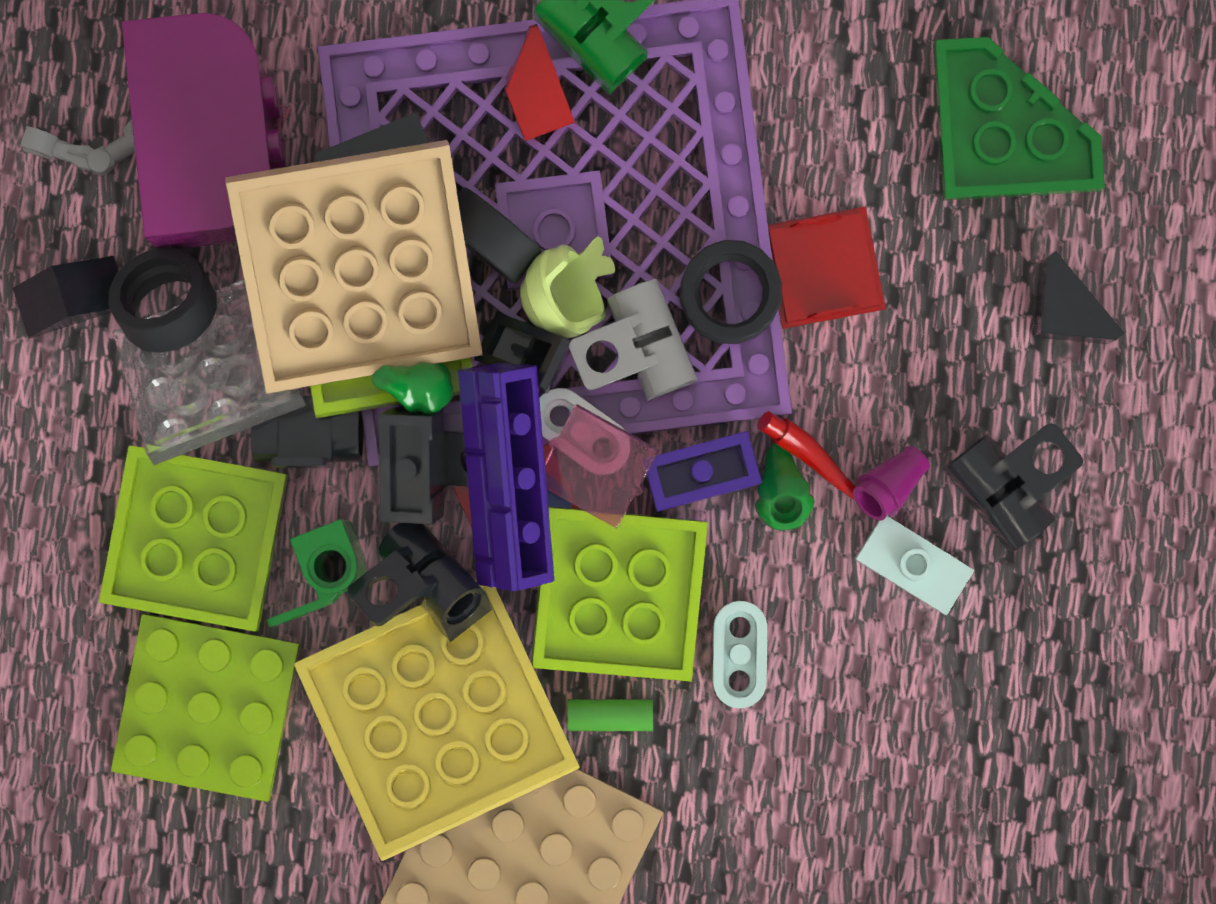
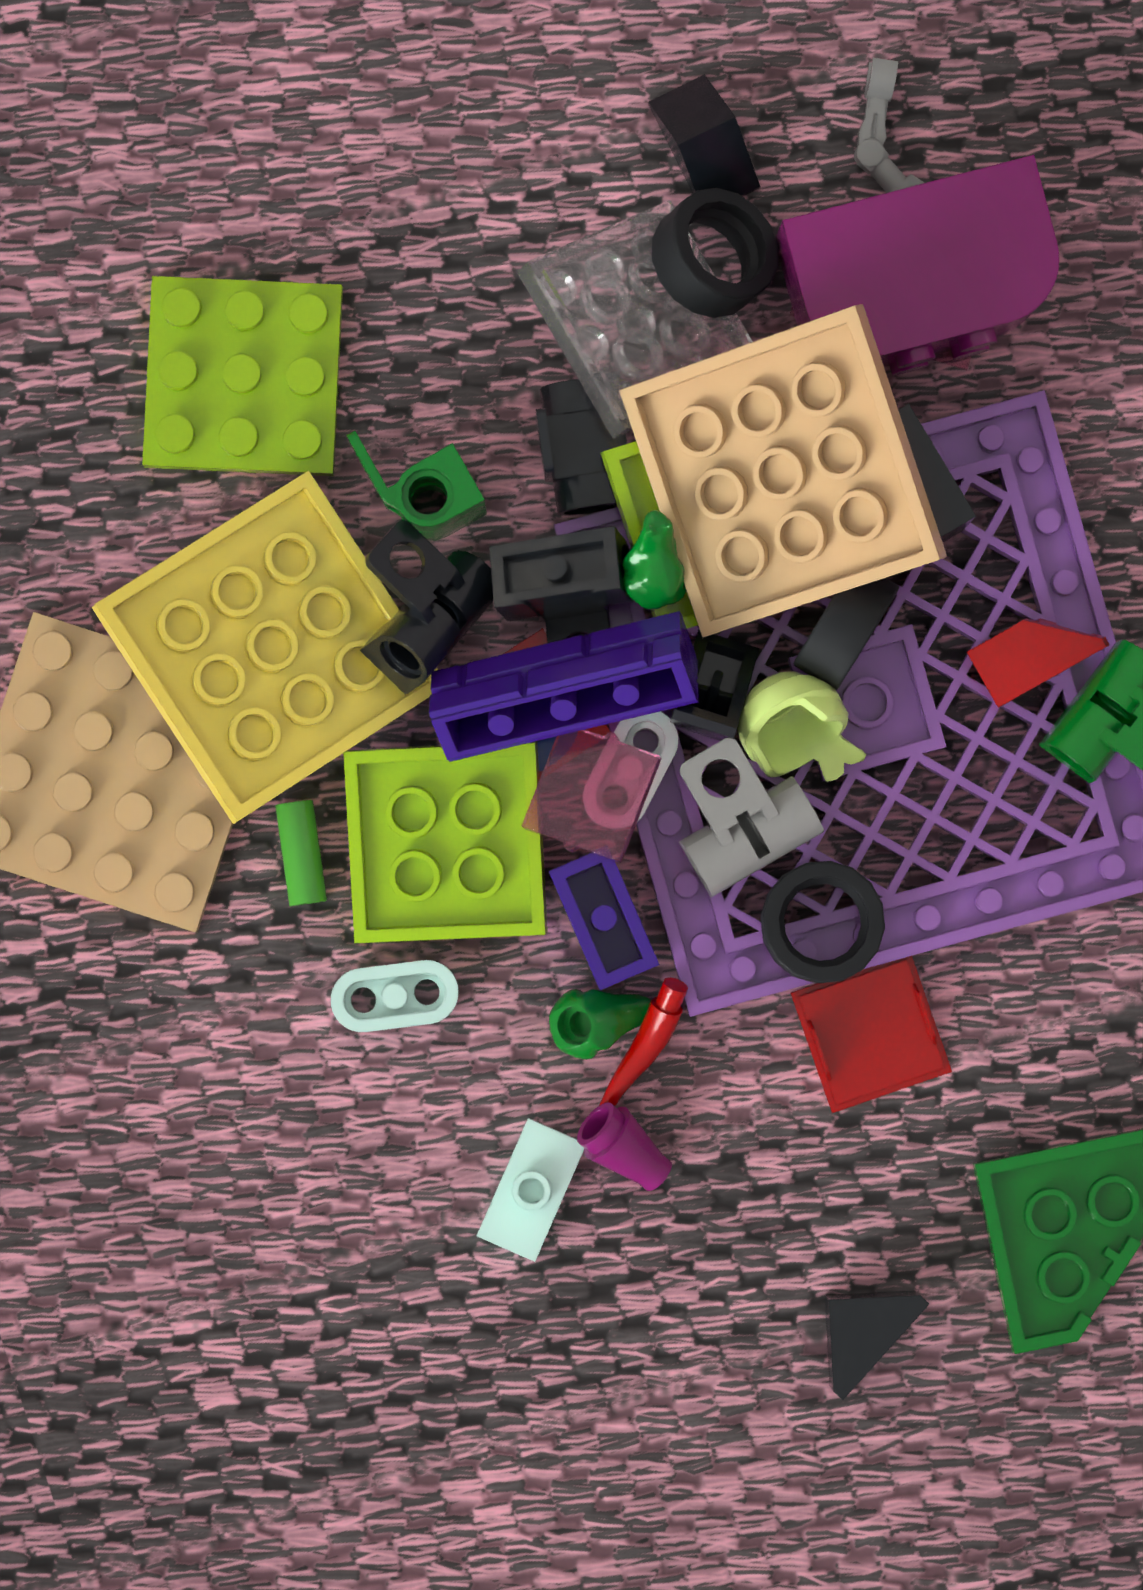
camera: 75 degrees right, 0 degrees up
(194, 539) = (437, 332): lime plate -> none
(1009, 487) = (638, 1287): black piece -> none

